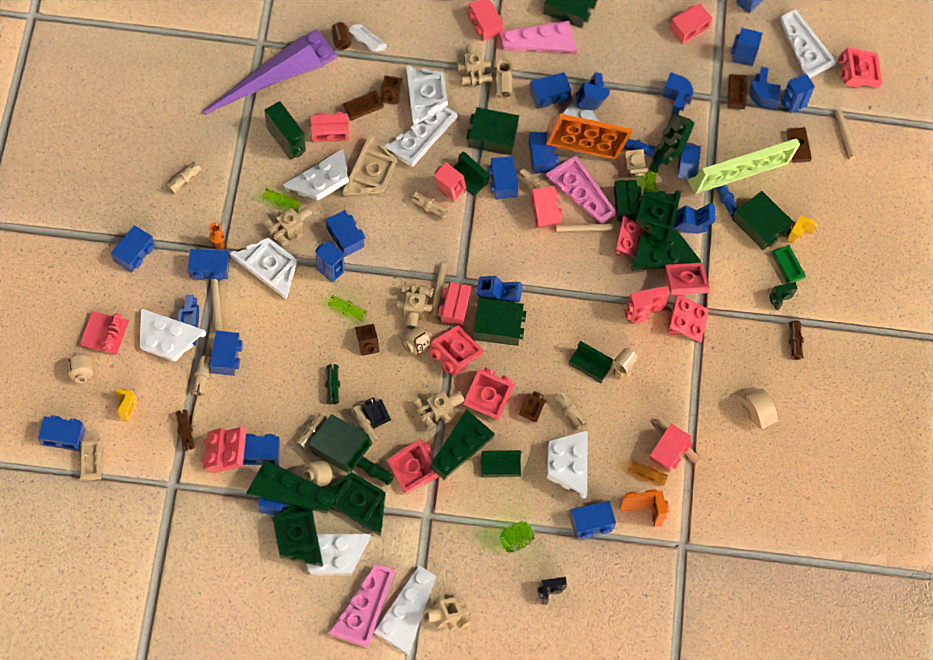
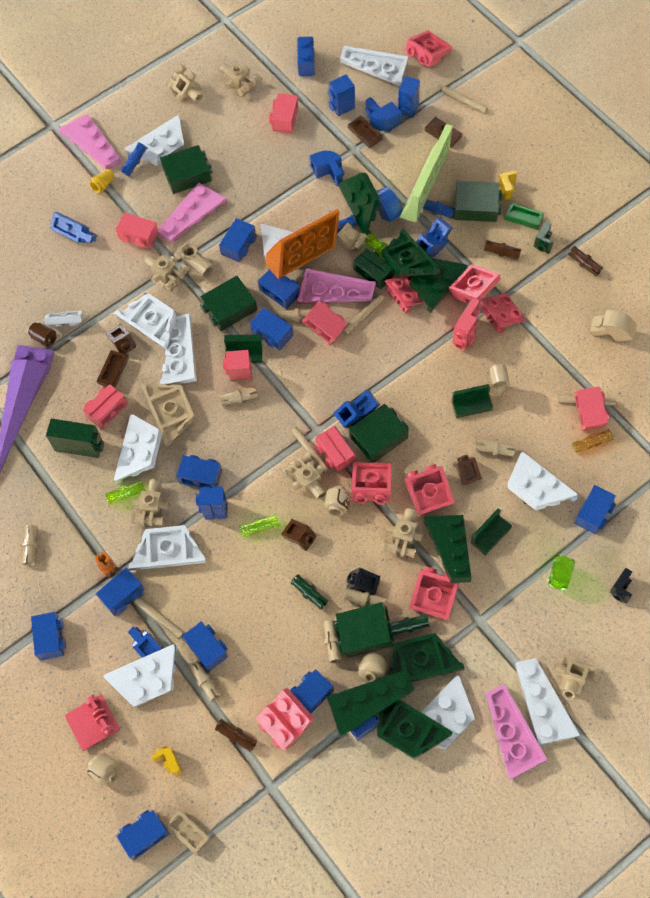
camera: 35 degrees left, 0 degrees up
(592, 93) = (270, 215): blue brick -> none
(650, 499) = (628, 456): orange bracket -> none
(741, 274) = (502, 249): none -> reddish brown pin

